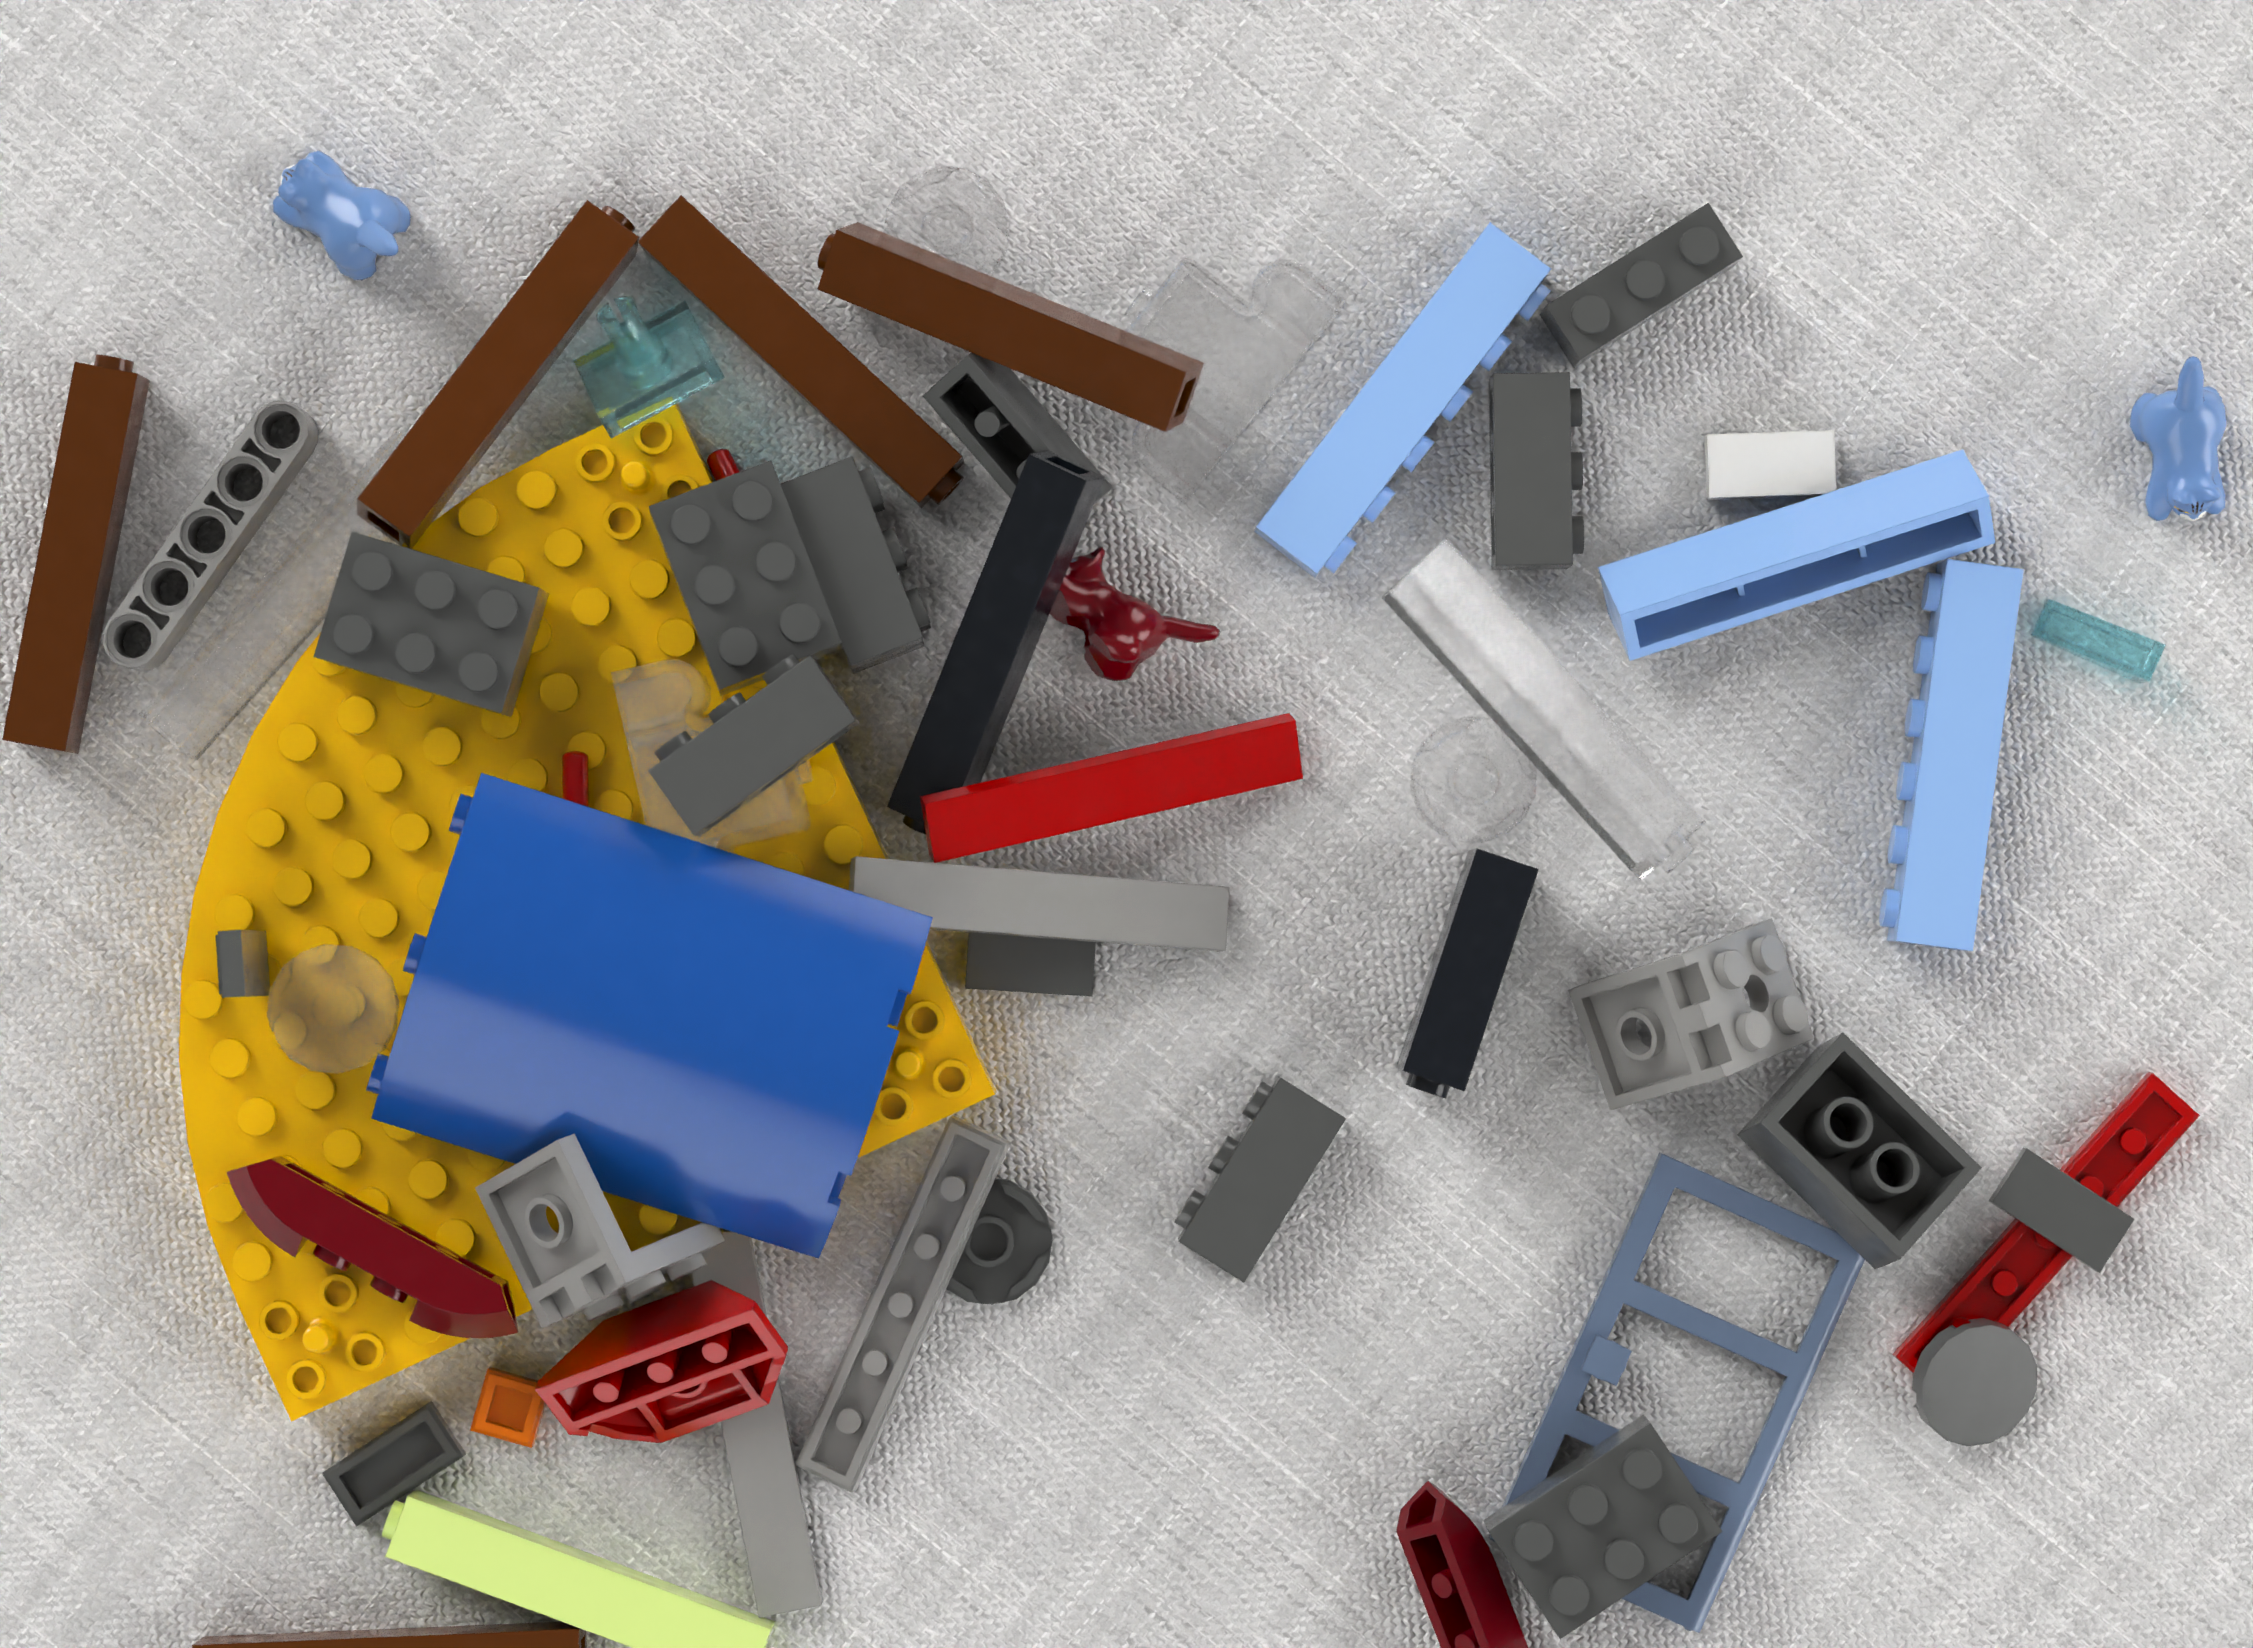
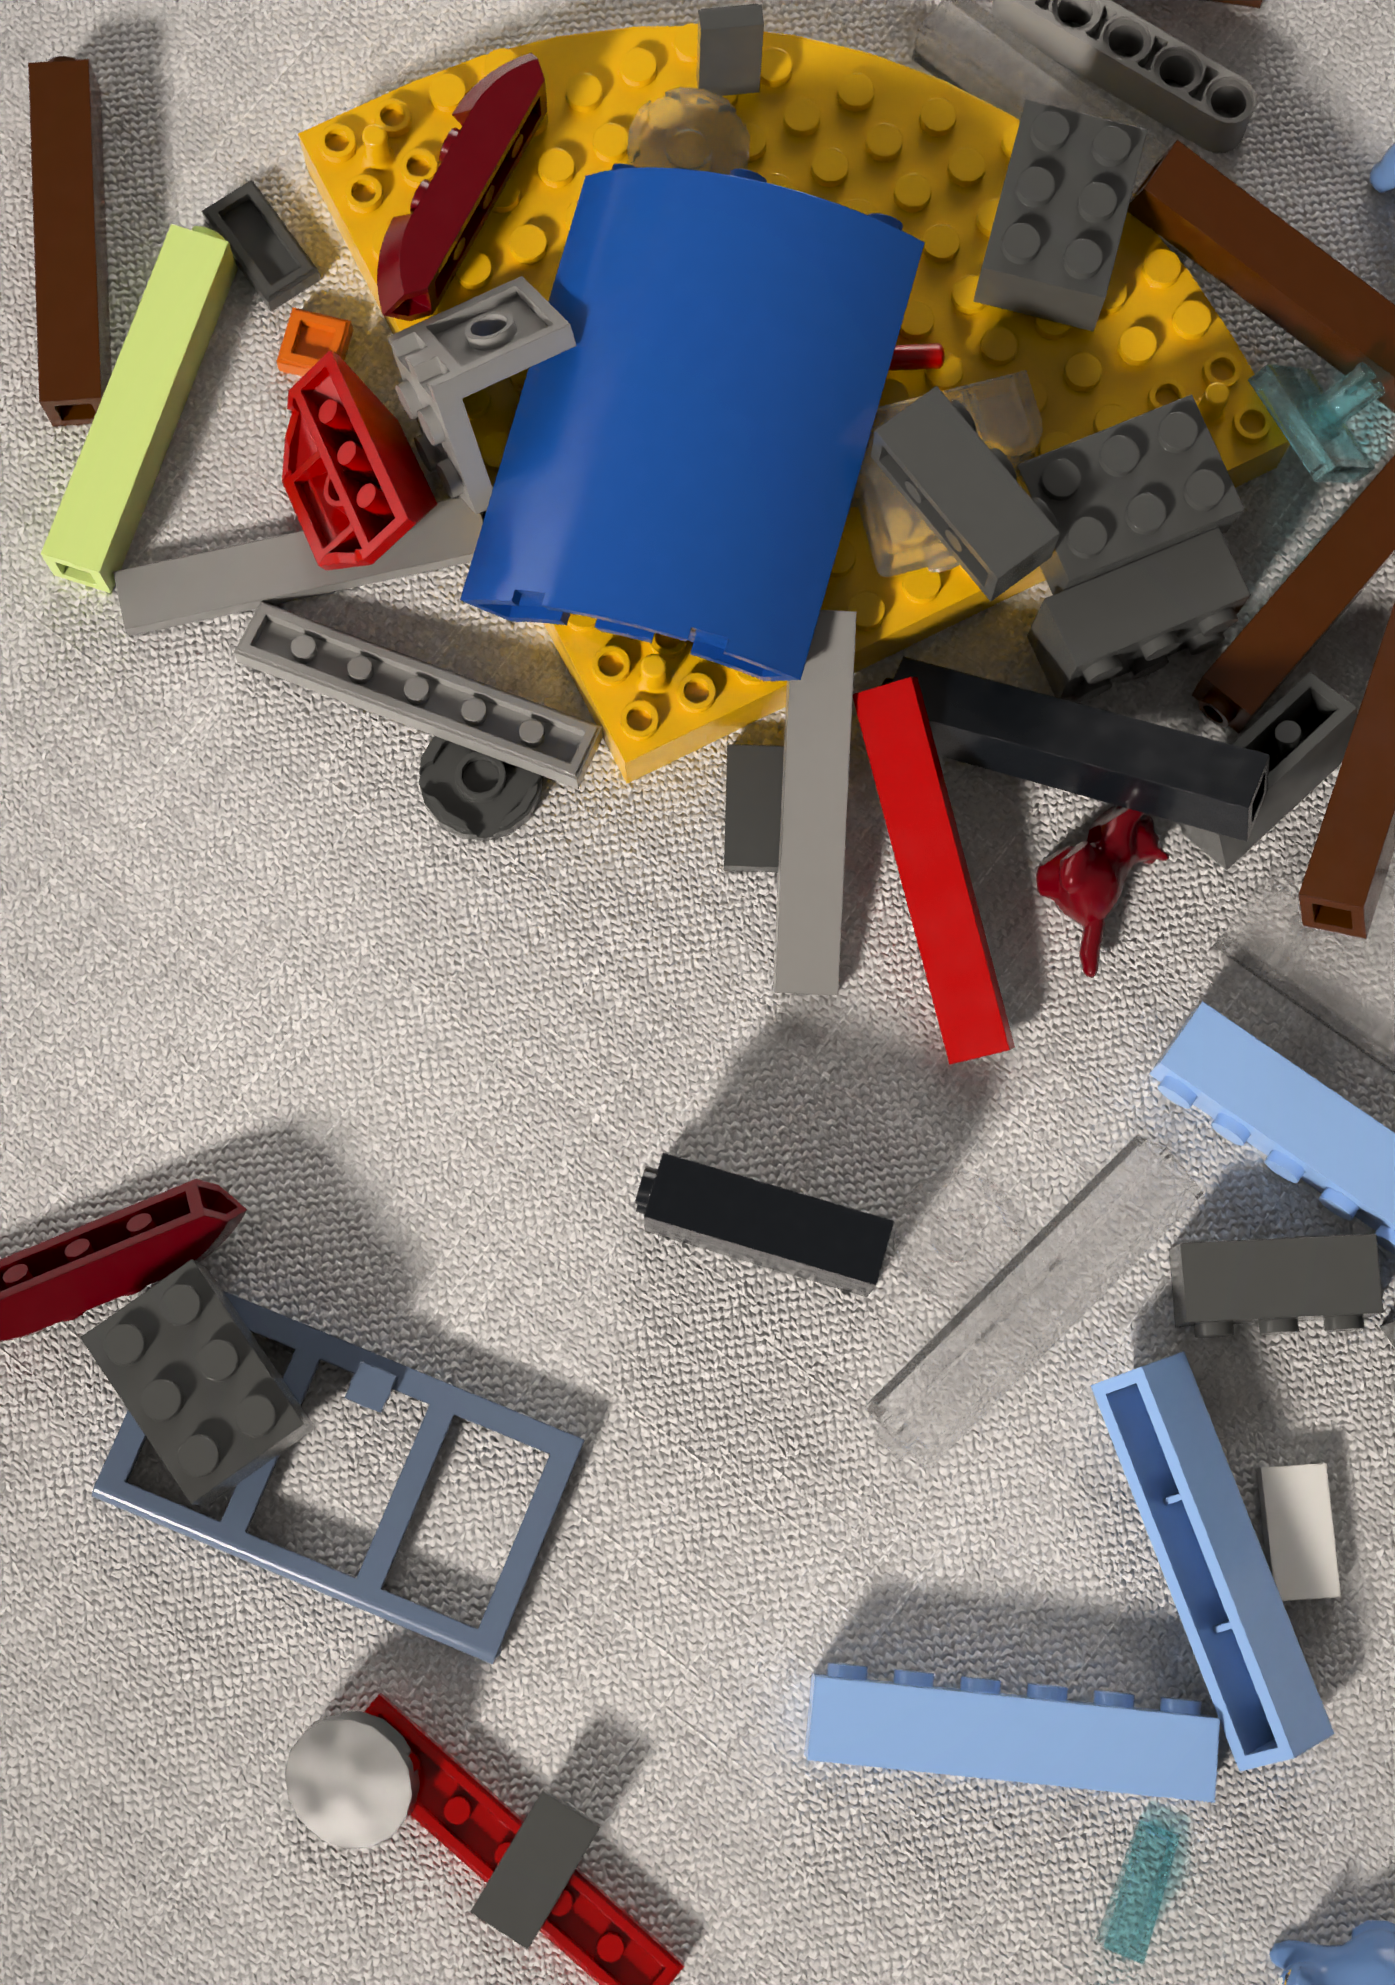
camera: 85 degrees right, 10 degrees down
(1258, 1177) = (549, 1031): dark grey brick -> none
(1693, 1014) = (729, 1467): light grey bracket -> none
(1859, 1151) = (591, 1645): dark grey brick -> none

